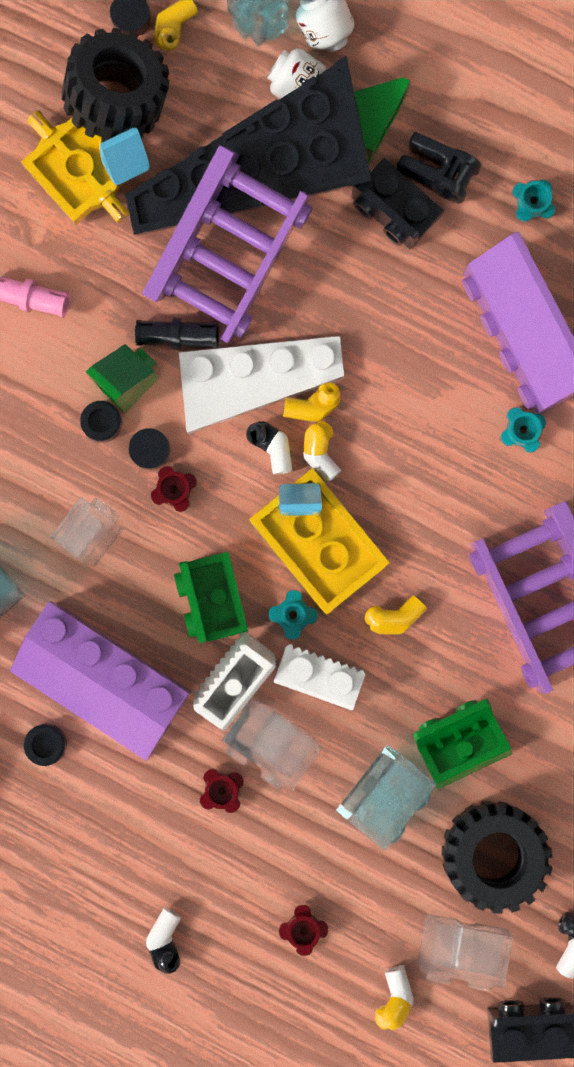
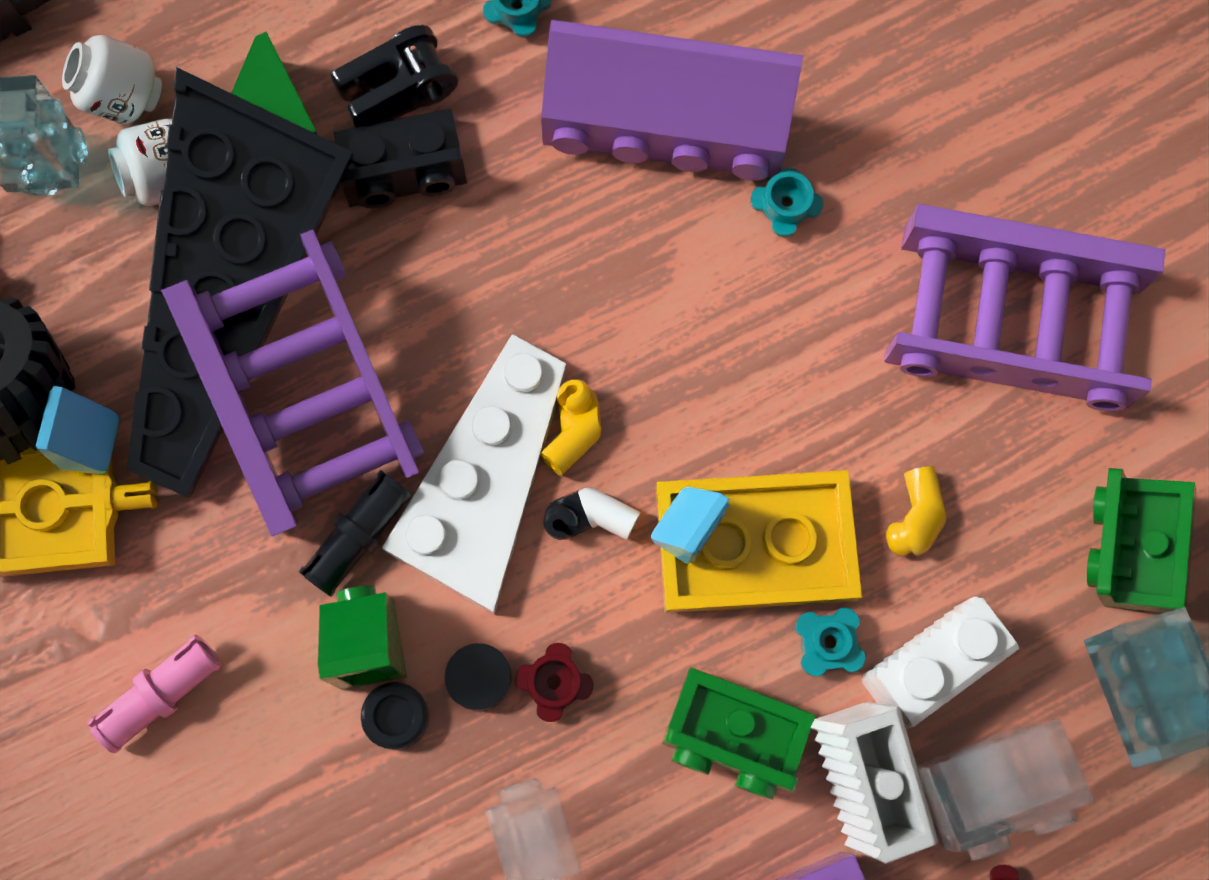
camera: 55 degrees left, 10 degrees down
(316, 448) = (635, 463): arm -> none

